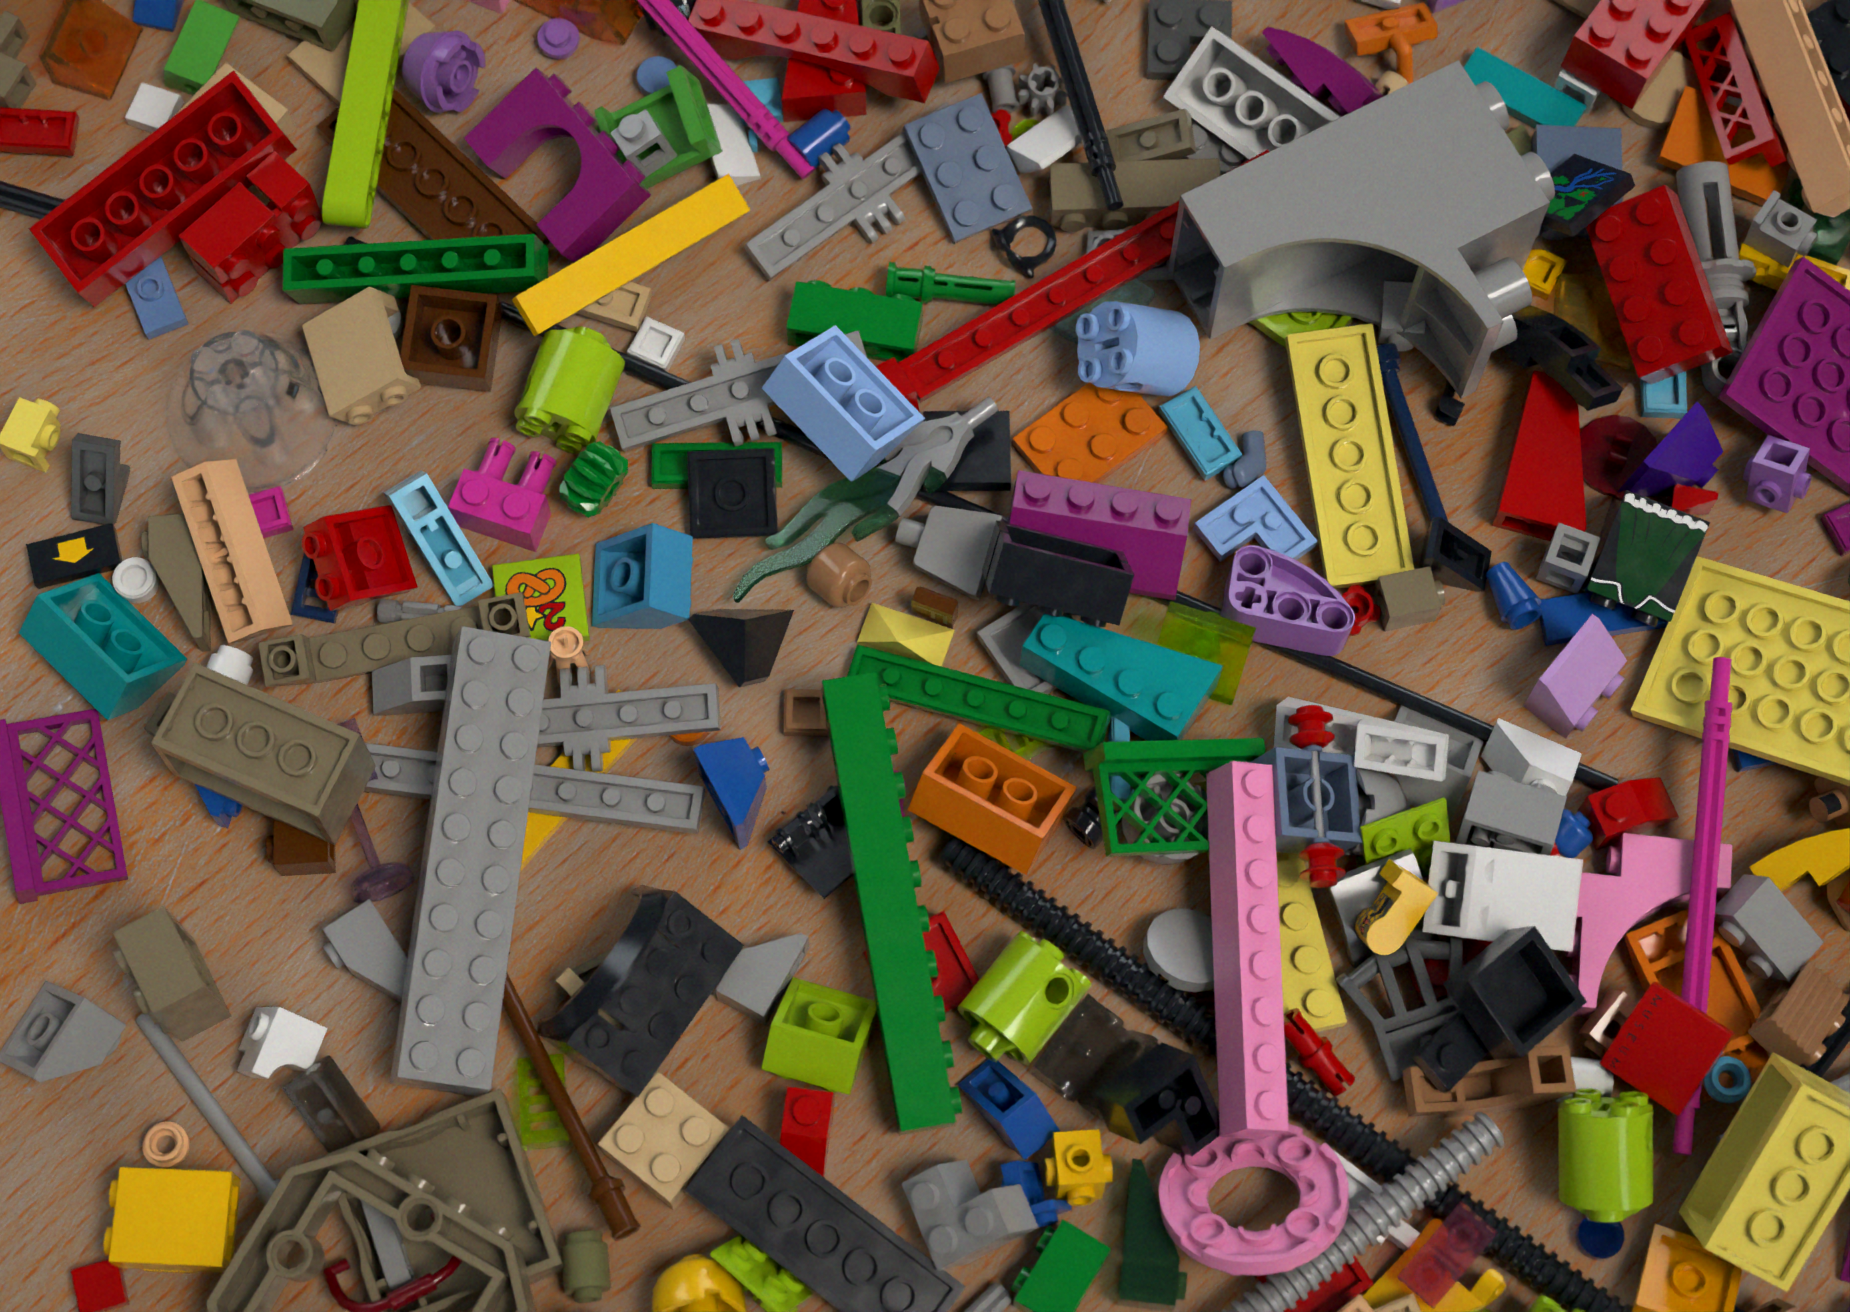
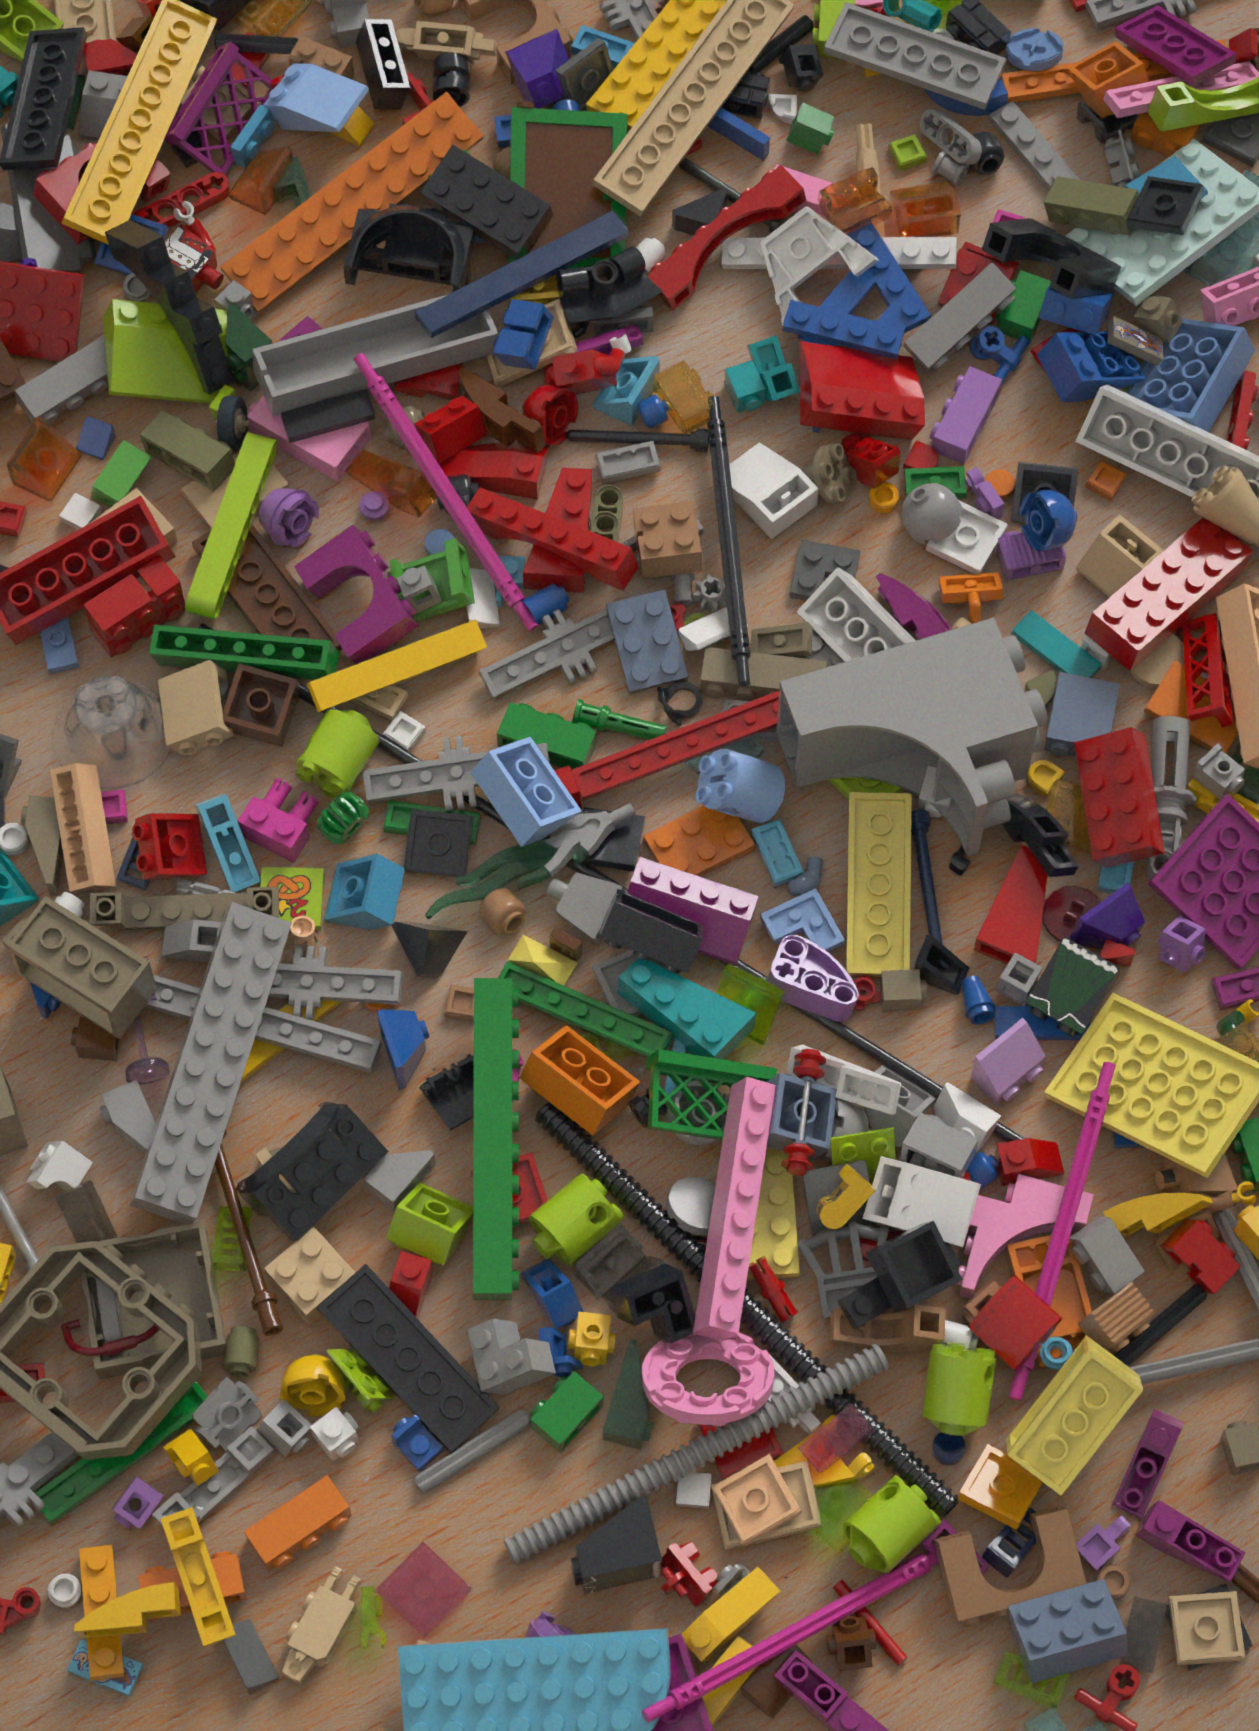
camera: 10 degrees right, 5 degrees down
(1583, 193) = (1074, 725): black tile -> none

